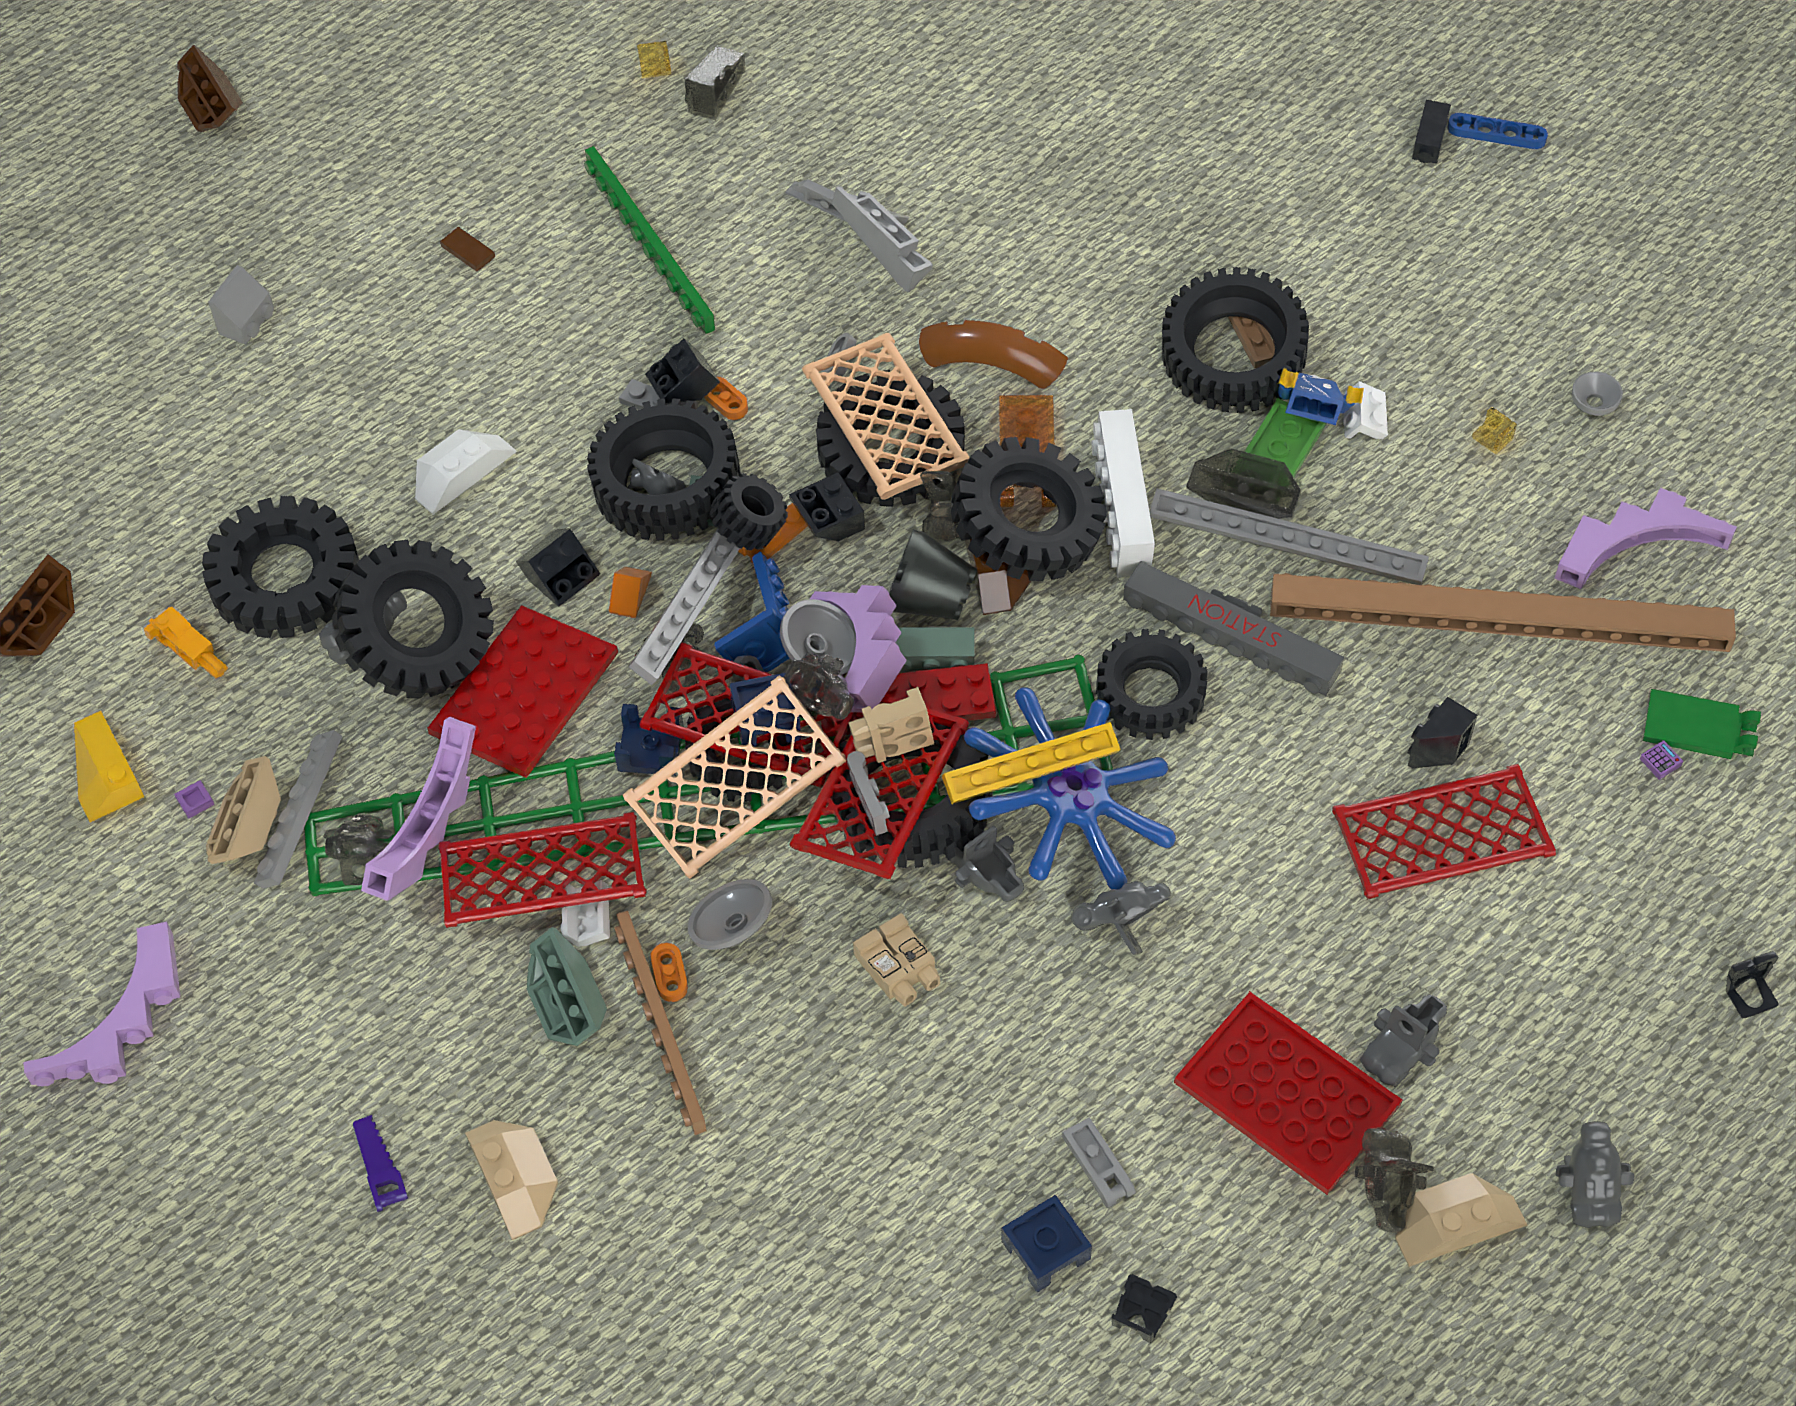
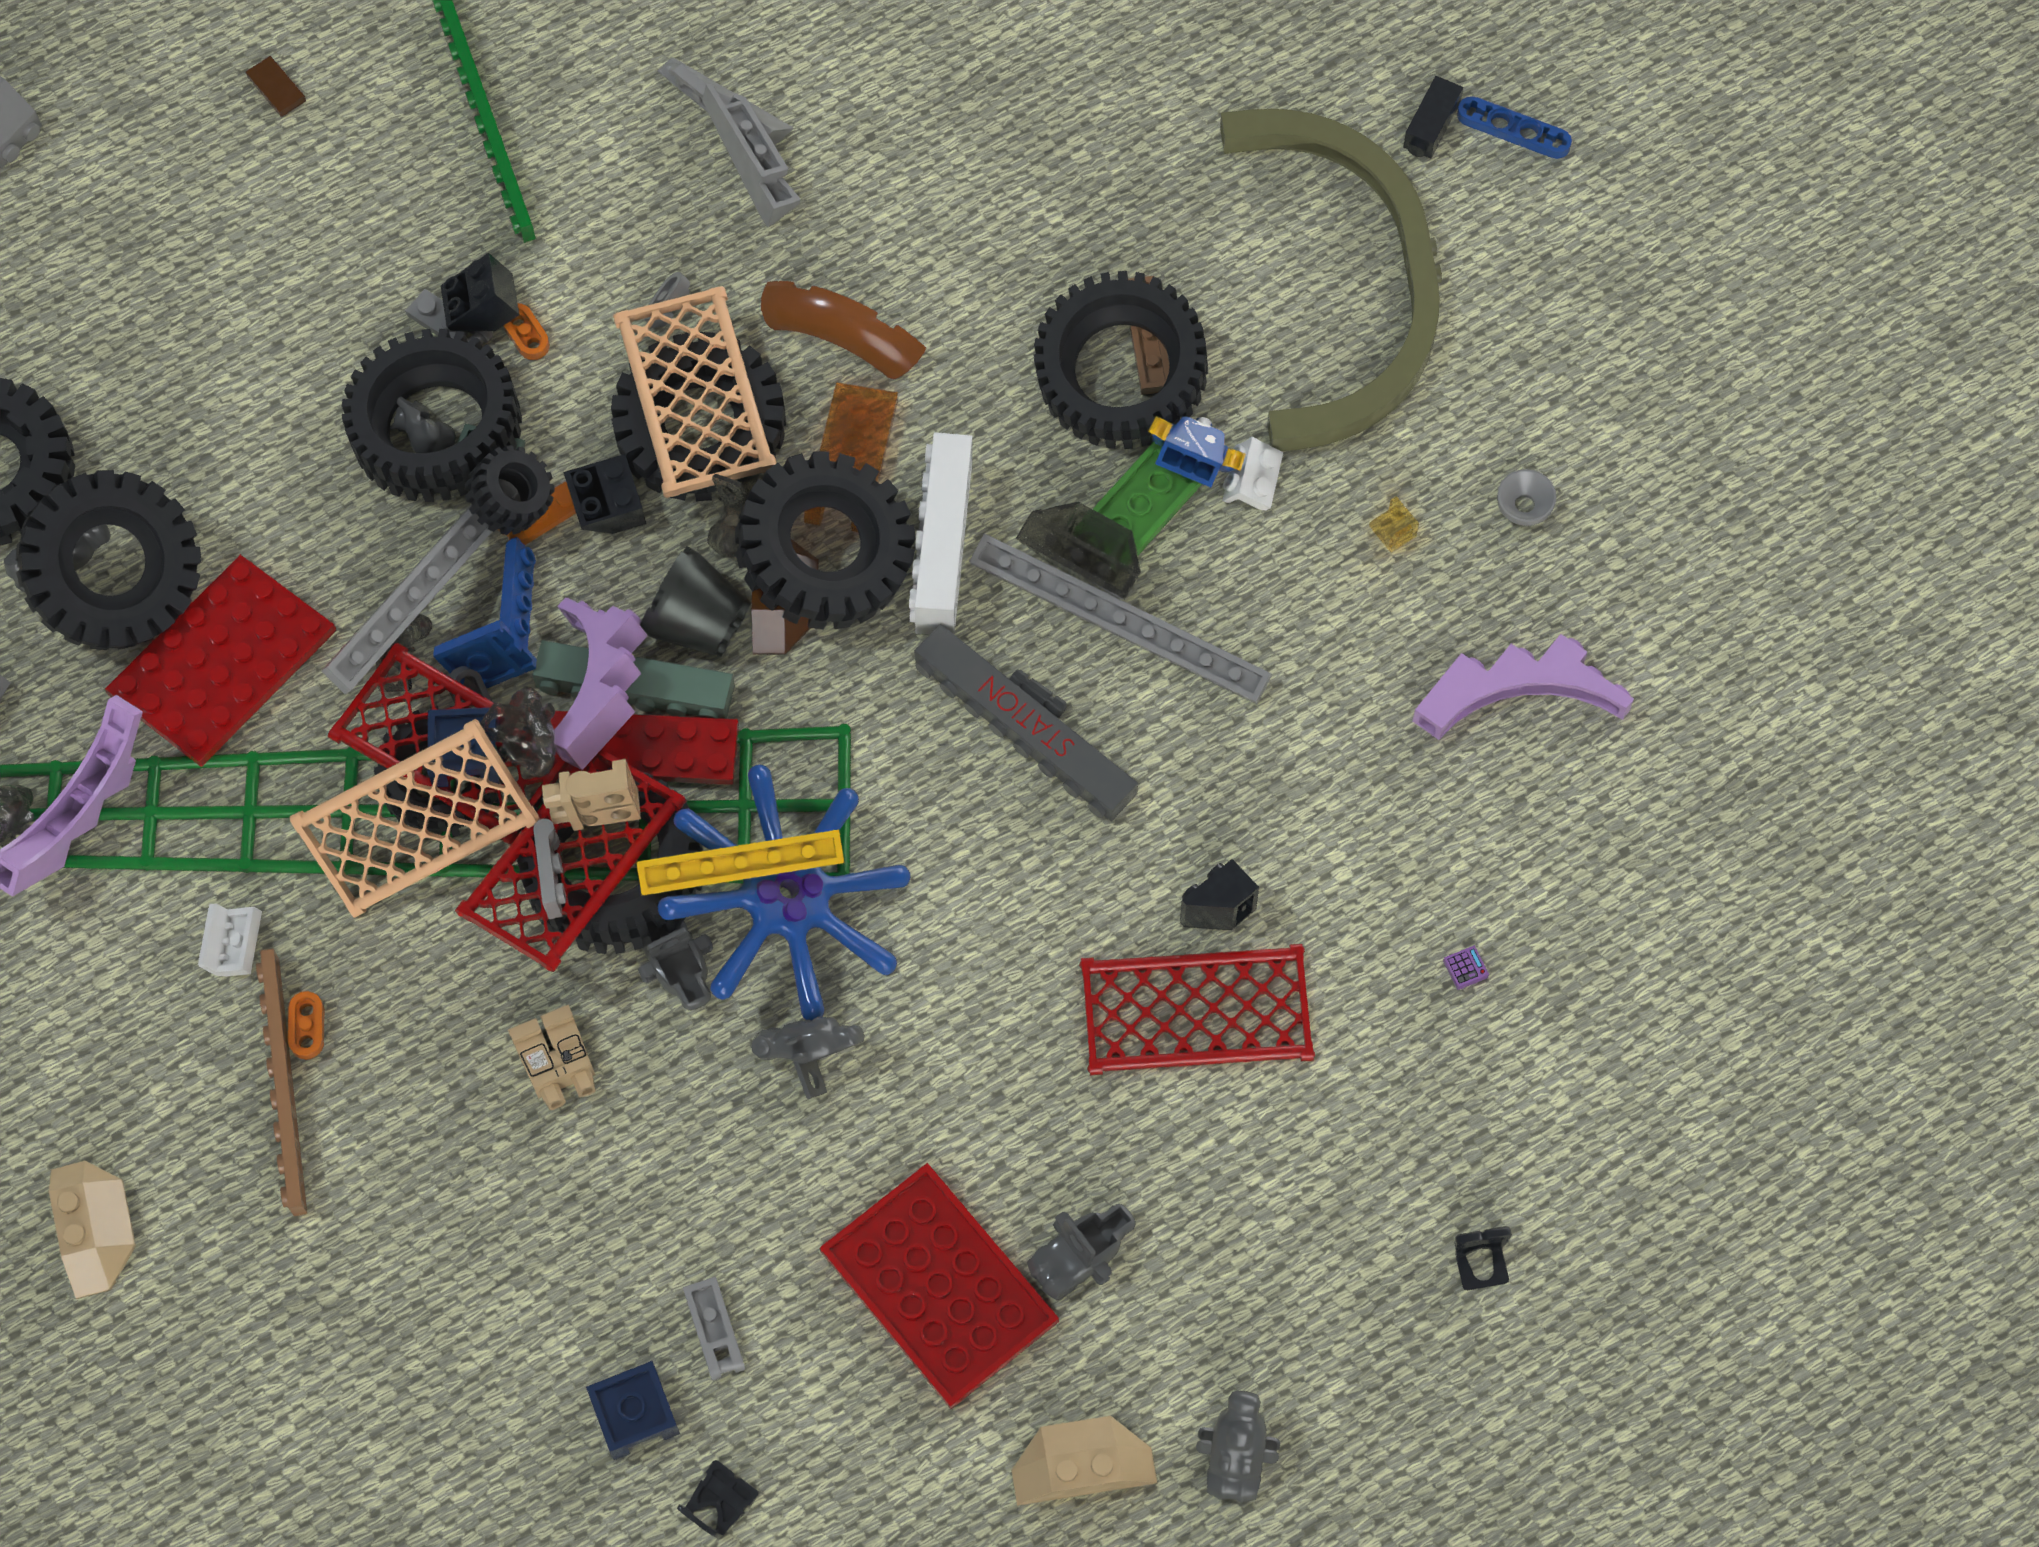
camera: 10 degrees right, 10 degrees up
(457, 466) = (206, 366): white wedge -> none
(523, 841) = (202, 920): red door -> none
(558, 566) = (291, 514): black slope -> none
(563, 990) = (188, 1028): sand green wedge -> none
(628, 591) = (363, 556): orange slope -> none
(643, 749) = (337, 762): dark blue panel -> none
(730, 914) = (383, 972): light grey dish -> none
(818, 626) = (551, 644): light grey dish -> none
(1153, 653) = (907, 737): black tyre -> none
(1366, 162) = (1345, 146): none -> olive arch
(1390, 1176) = (1019, 1403): clear smoke piece -> none
(1503, 612) = (1337, 756): medium nougat brick -> none
(1700, 725) = (1520, 932): green tile -> none

